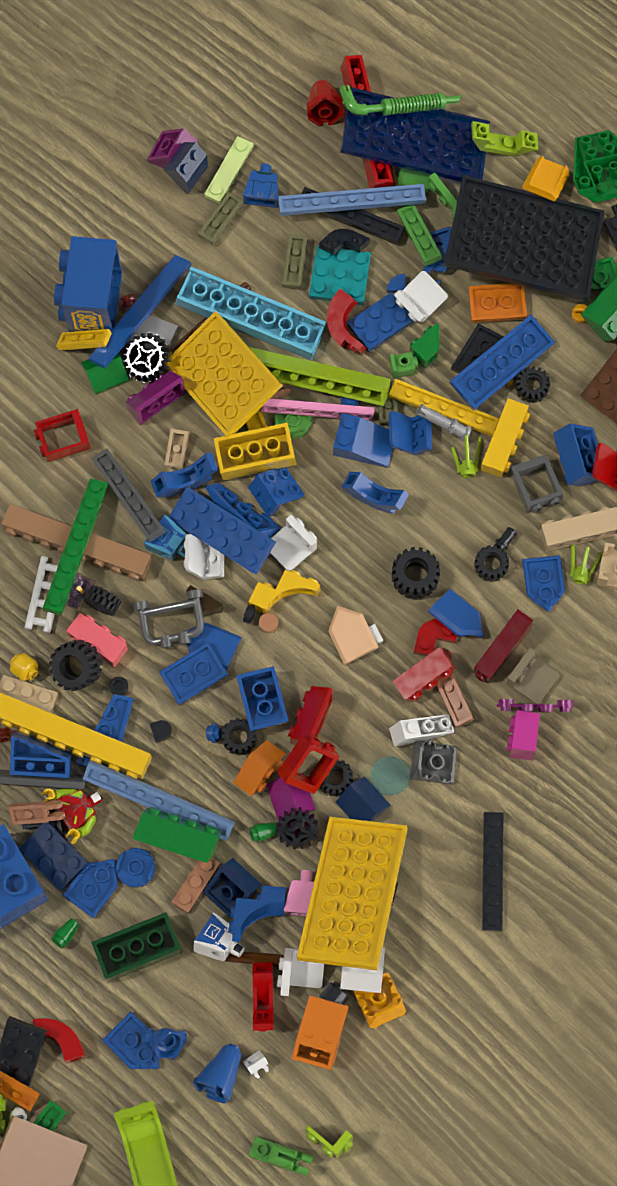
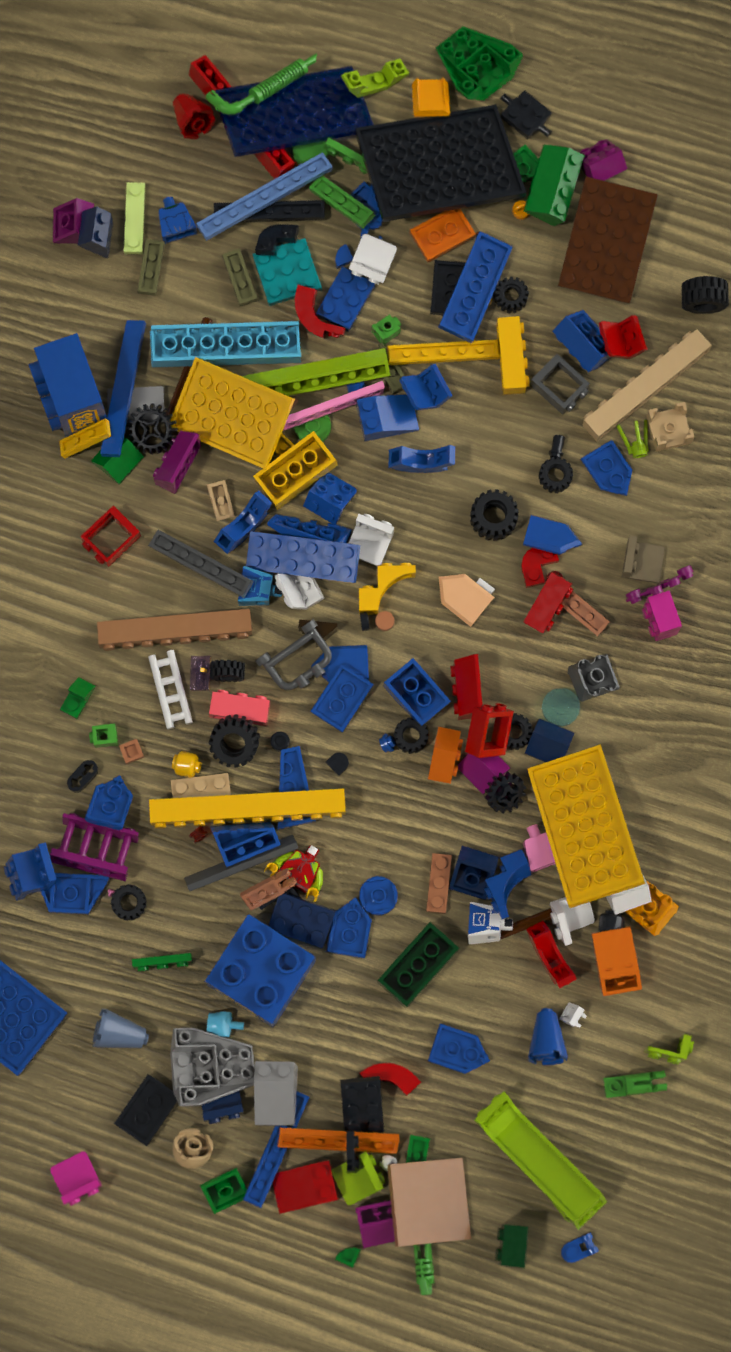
camera: 30 degrees left, 5 degrees up
(64, 934) = (346, 985): green cone -> none
(75, 547) = (179, 633): green plate -> none
(128, 300) = (106, 382): clear red bush -> none
(153, 797) = (370, 826): medium blue plate -> none
(165, 1041) = (485, 1035): blue hair -> none
(177, 834) = (403, 849): green slope -> none
(262, 831) = (474, 810): green cone -> none
(420, 729) = (568, 653): white slope -> none
(427, 346) = (400, 303): green slope -> none
(451, 426) = (458, 366): light grey pin -> none
(467, 468) = (492, 397): lime plant -> none
(492, 871) = (692, 748): black plate -> none
(503, 646) = (604, 545): dark red slope -> none

